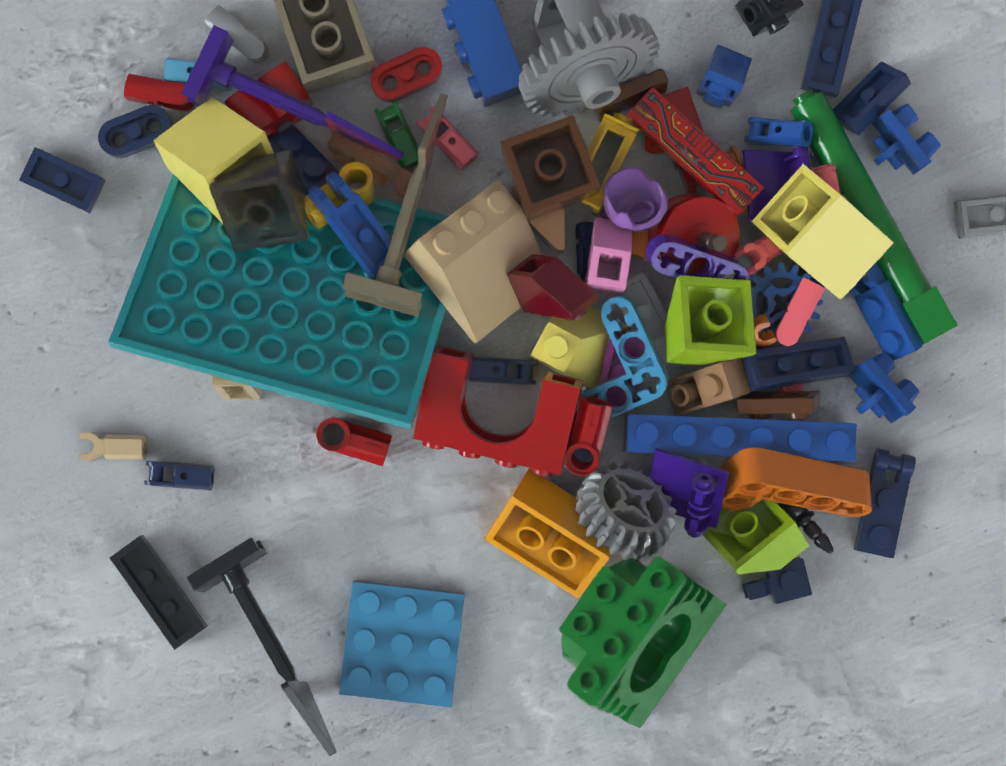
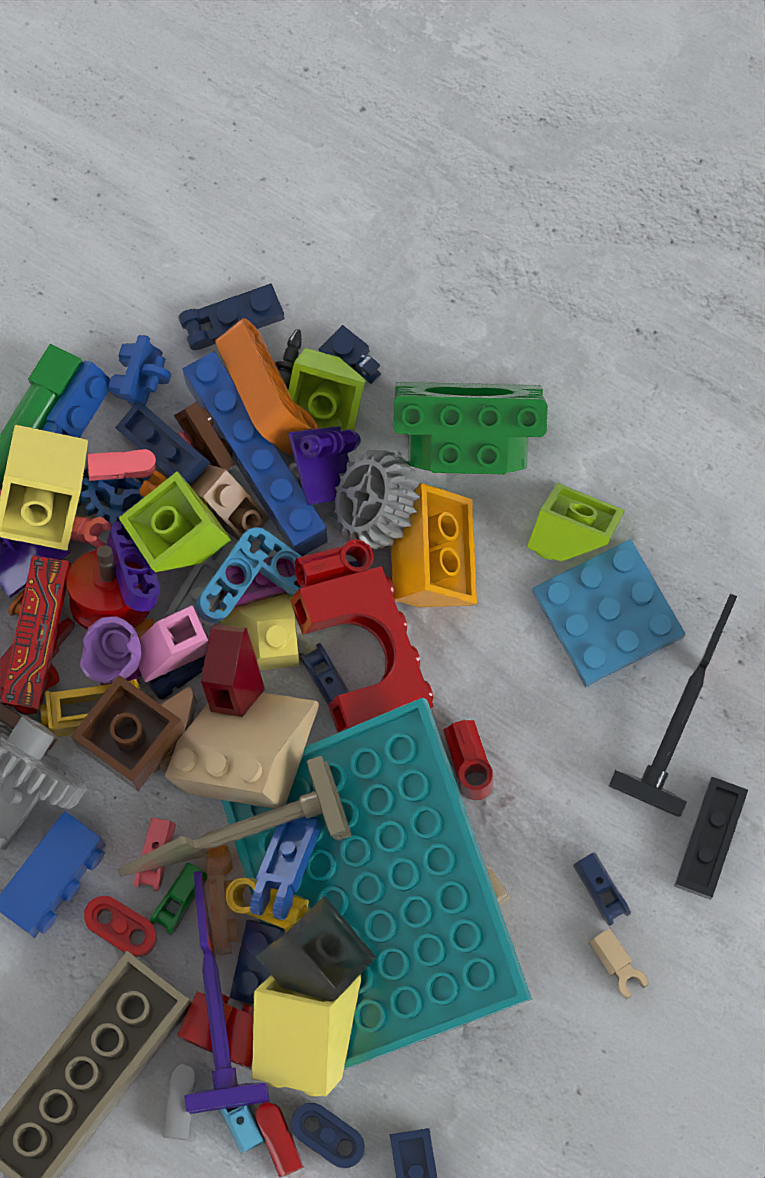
camera: 120 degrees left, 15 degrees down
(493, 668) = (572, 524): none -> lime slope

